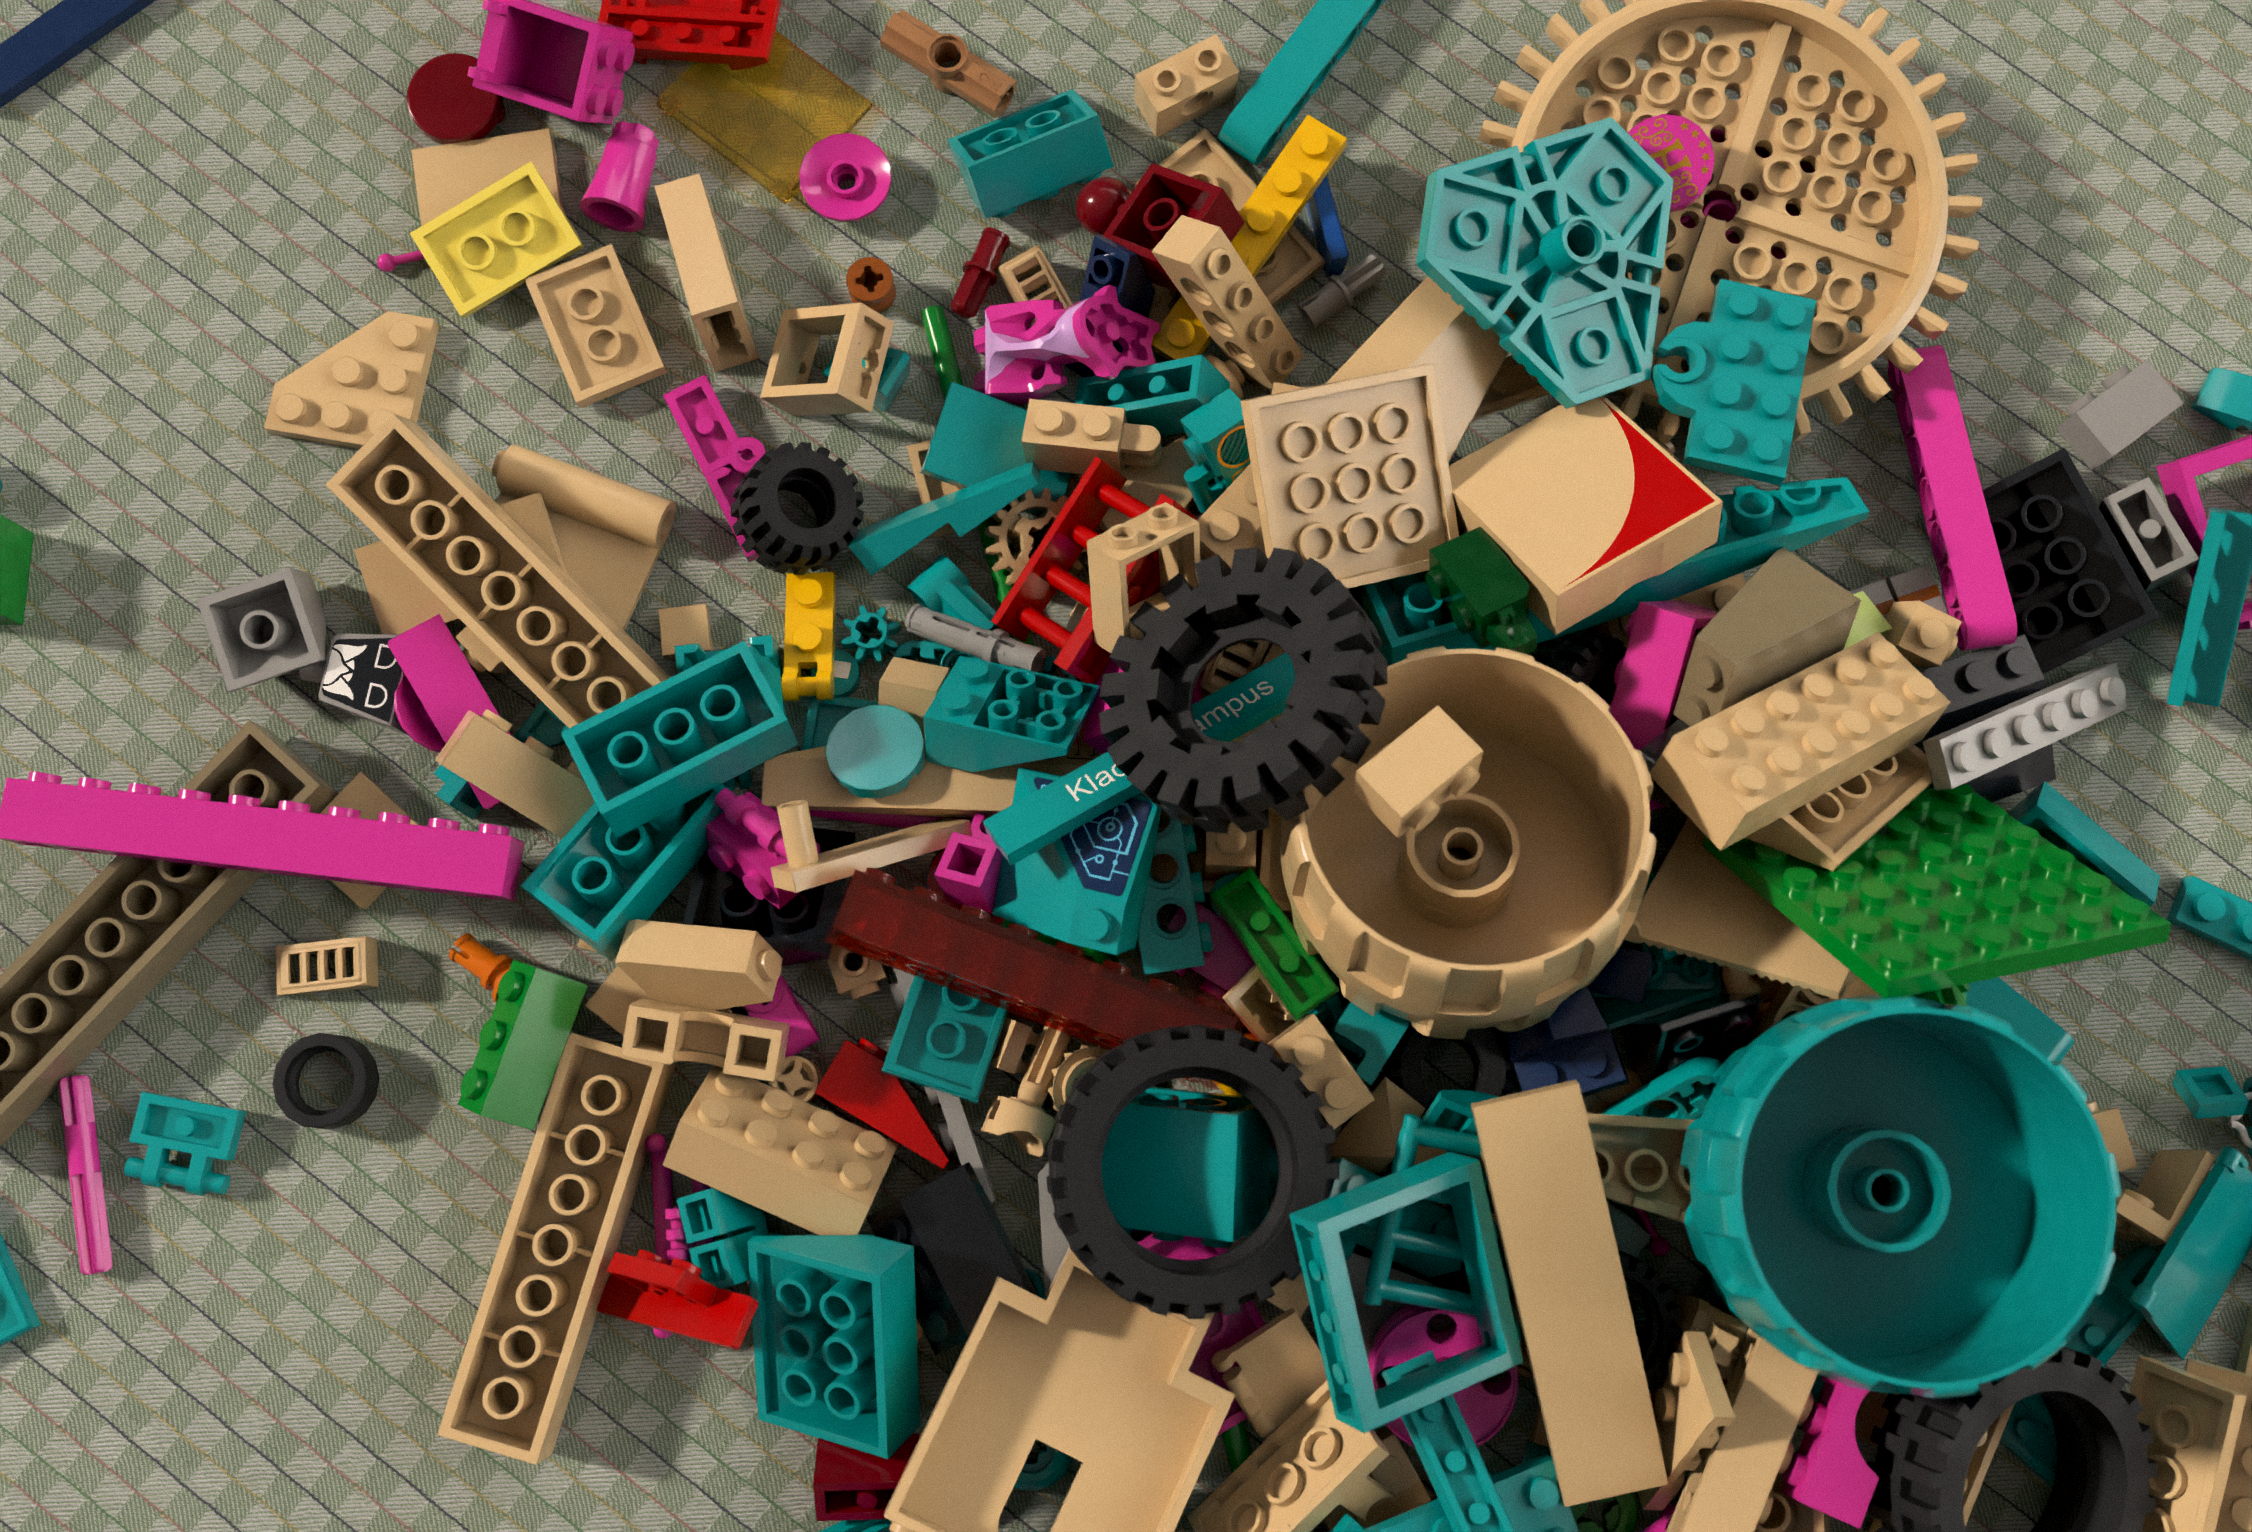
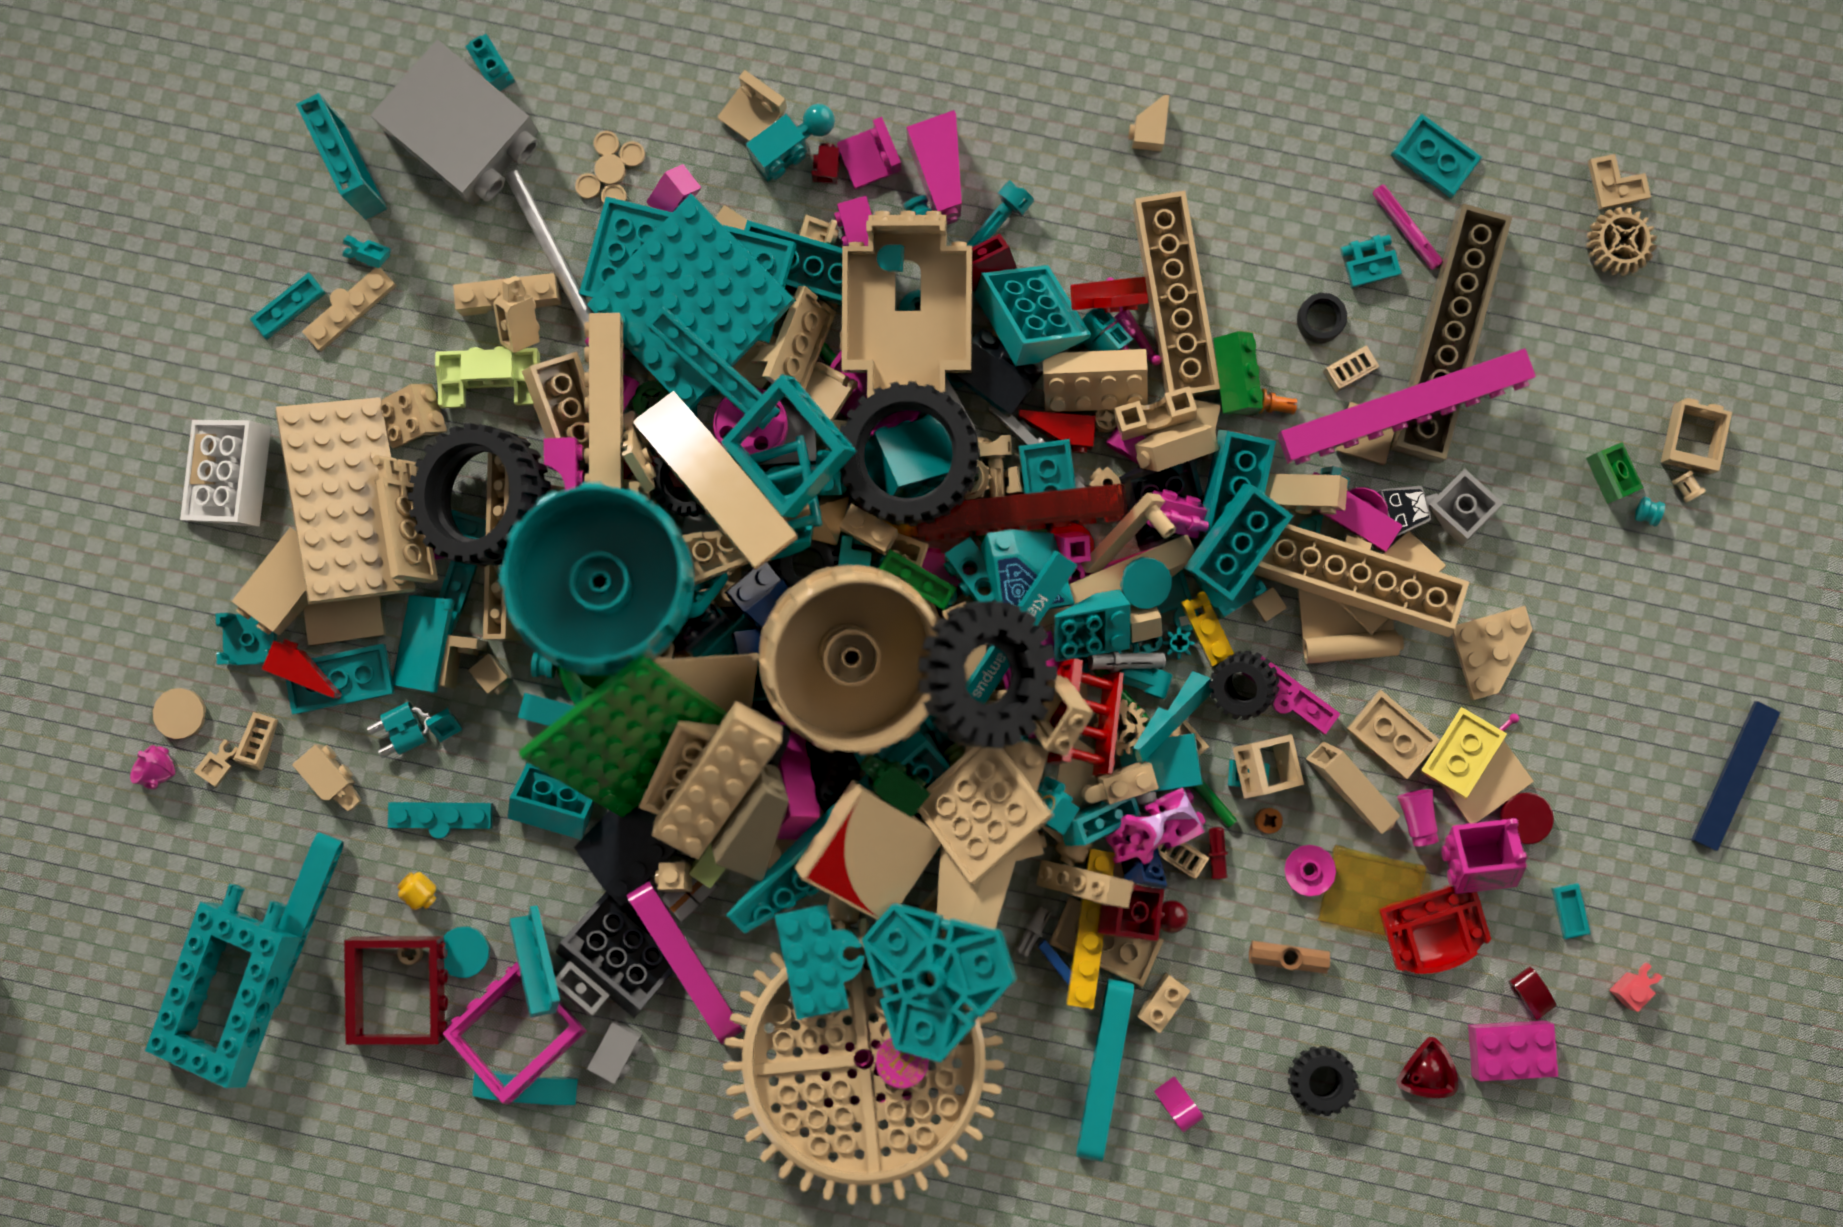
camera: 160 degrees right, 5 degrees up
(1031, 154) = (1224, 929): teal slope -> none
(1419, 773) = (889, 666): tan brick -> none
(2024, 726) = (604, 855): light grey plate -> none

